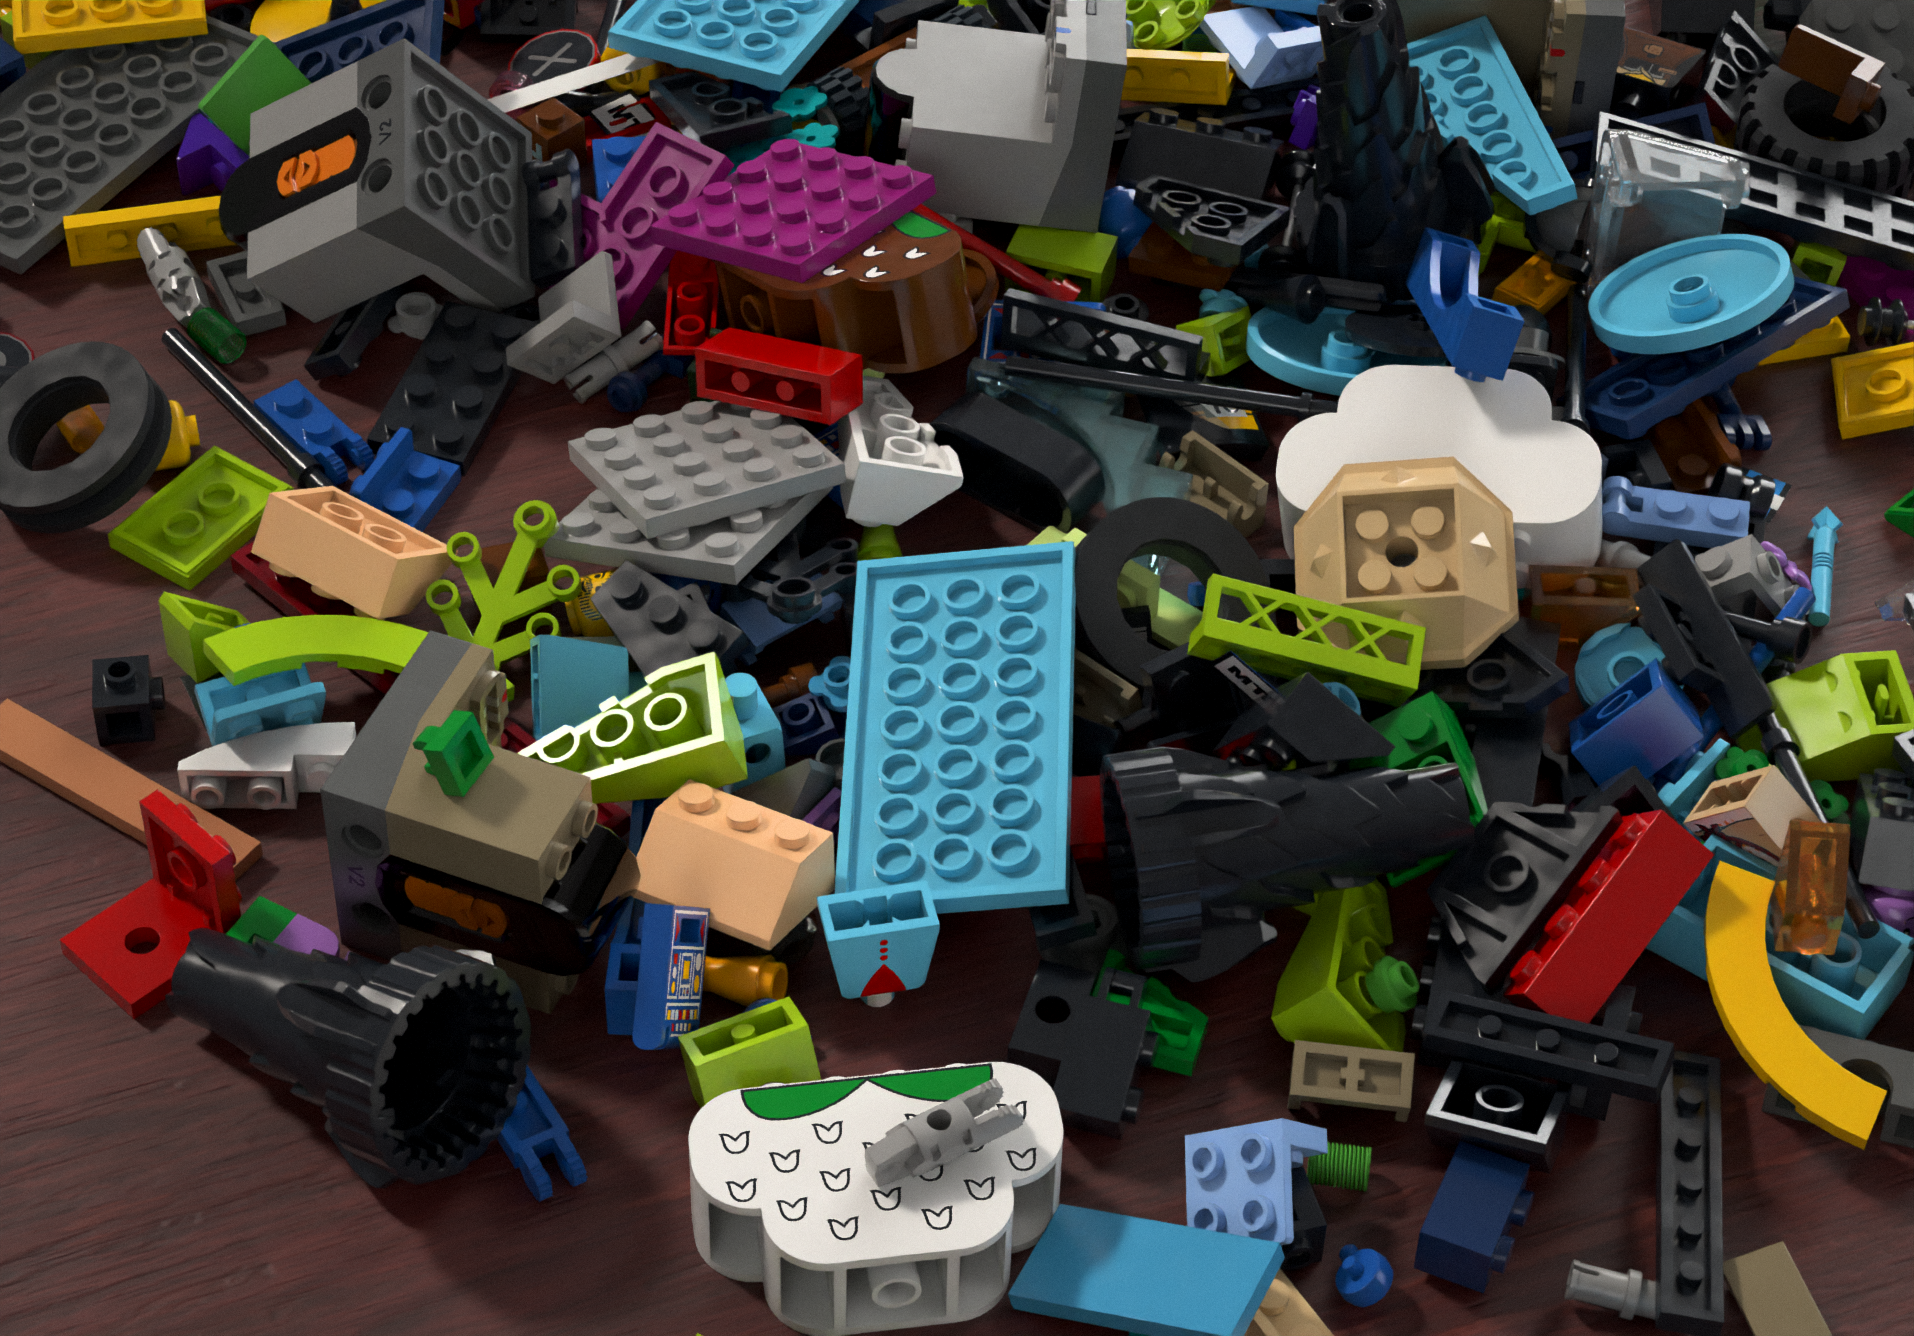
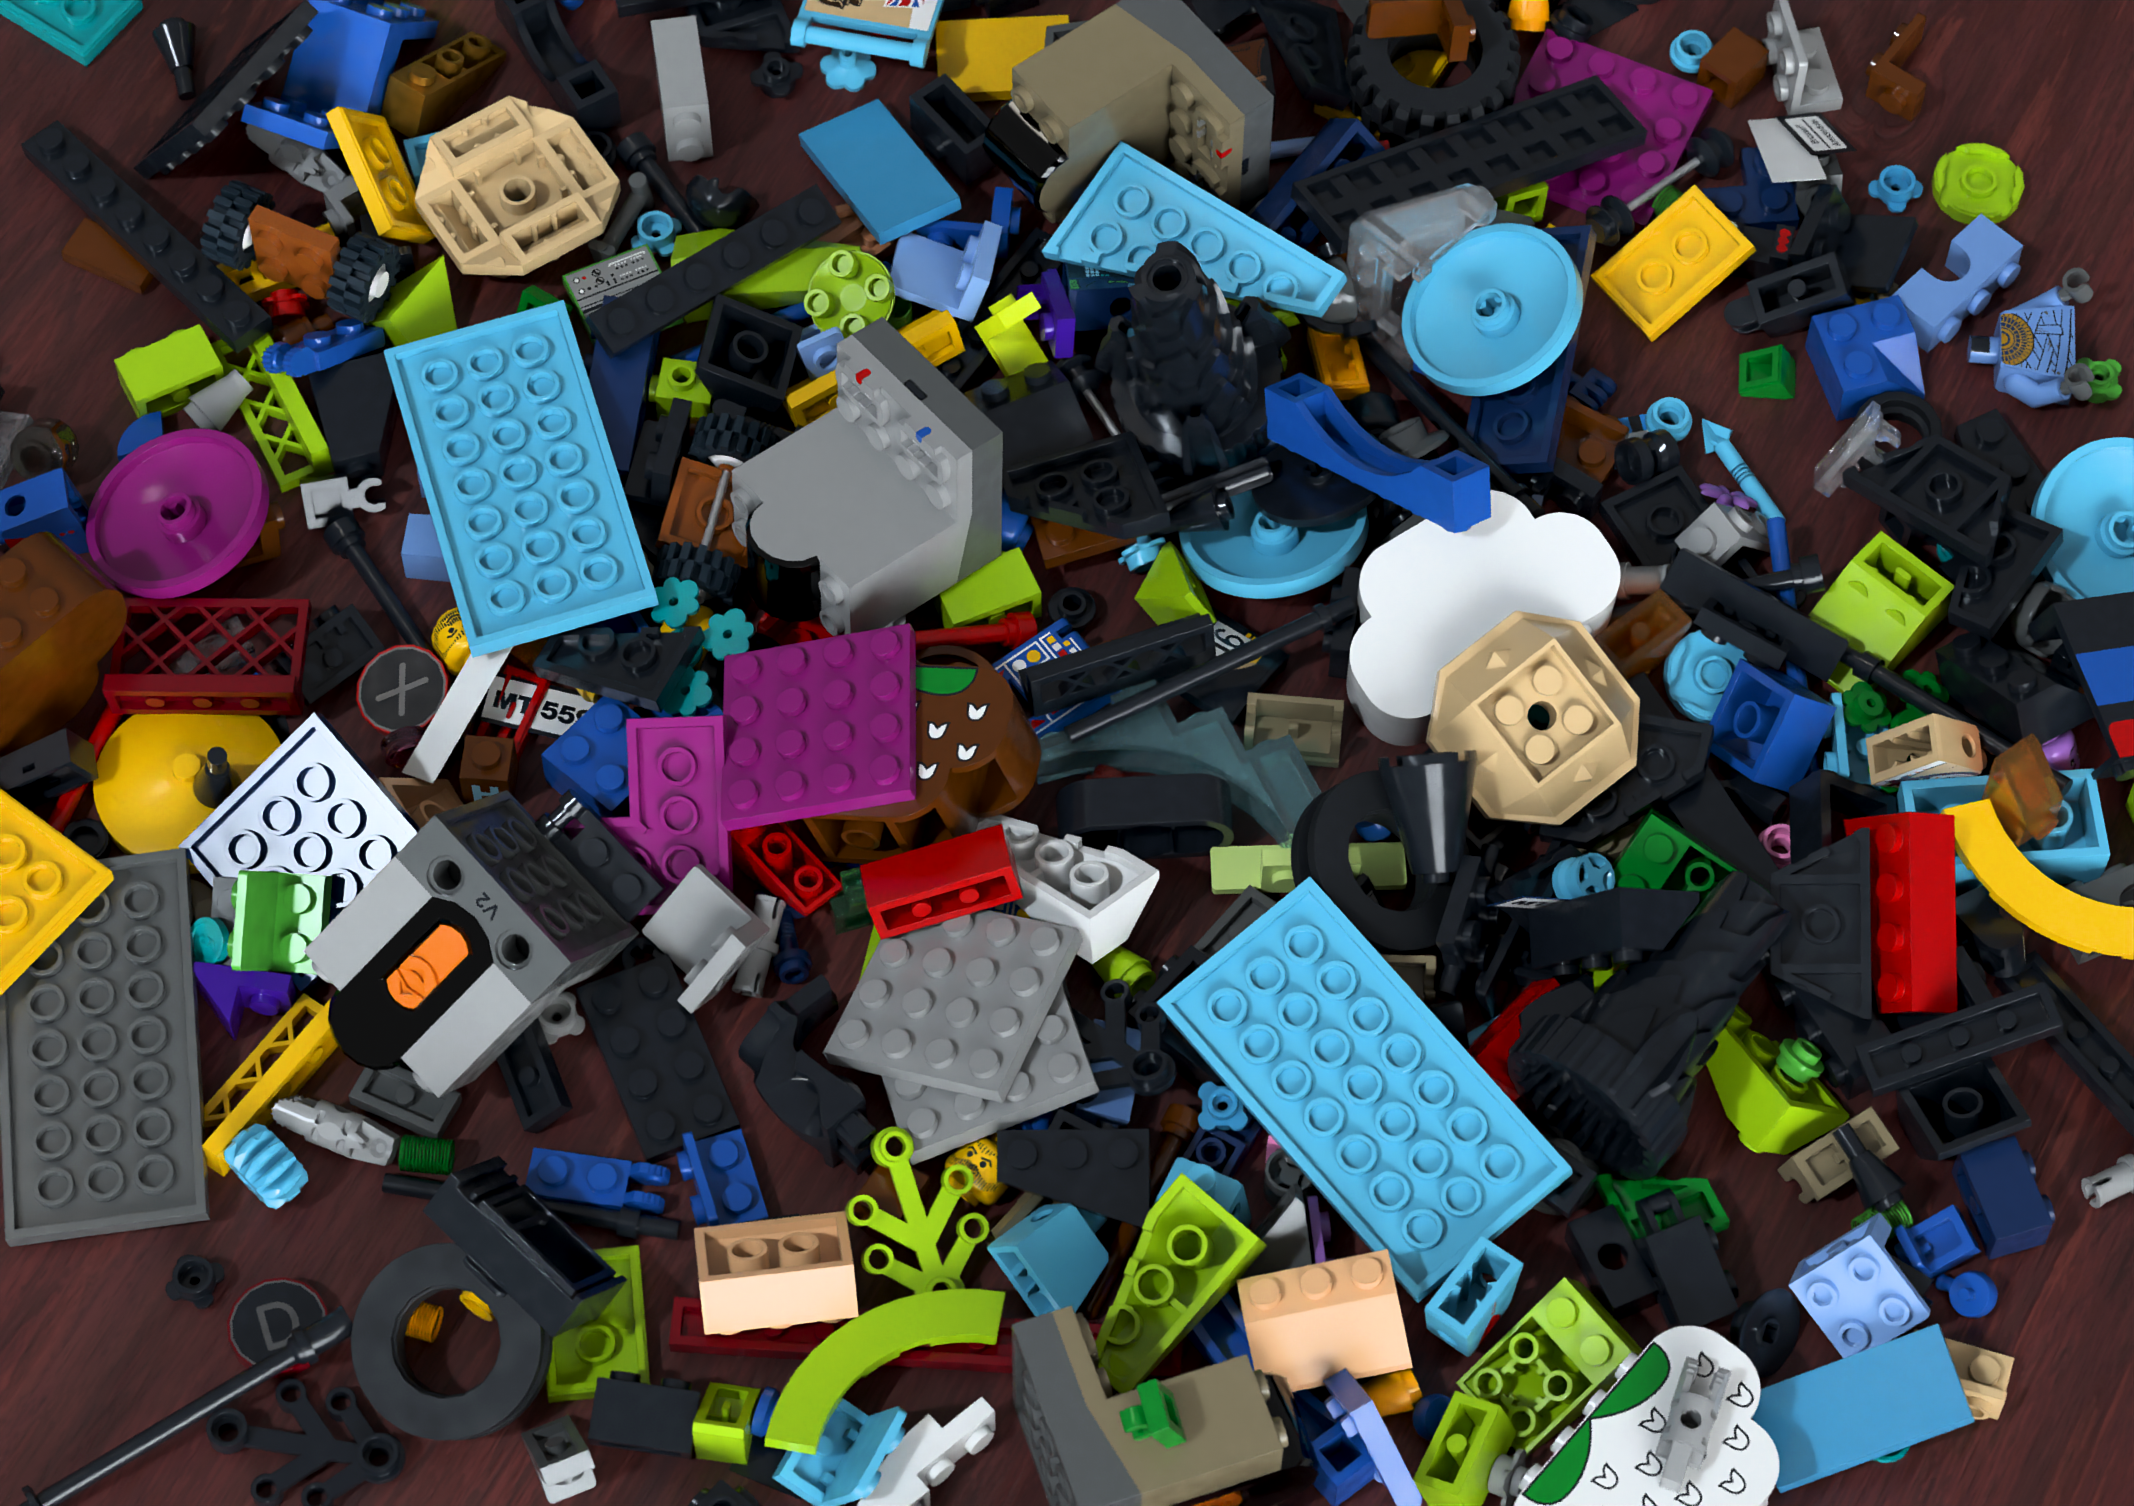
camera: 40 degrees left, 15 degrees up
(61, 579) = (560, 1459): none -> dark grey slope
(92, 259) = (266, 1166): none -> medium azure gear
(137, 570) = (644, 1415): none -> black brick
(143, 388) = (523, 1247): none -> black piece
(532, 428) = (805, 1096): none -> black hips
(915, 1033) = (1551, 1363): none -> lime slope
(1152, 1175) = (1767, 1330): none -> black piece
(1241, 542) = (1431, 808): none -> black cone
(1271, 100) = (1009, 336): none -> neon yellow bracket
(1289, 656) = (1547, 855): lime fence -> none
(1354, 1113) = (1874, 1179): none -> black cone
(1369, 1214) = (1936, 1242): none -> blue bracket
(1671, 515) = (1639, 506): medium blue plate -> none
(1684, 1009) = (1987, 935): none -> black leg
(1795, 489) = (1673, 410): none -> medium azure plate

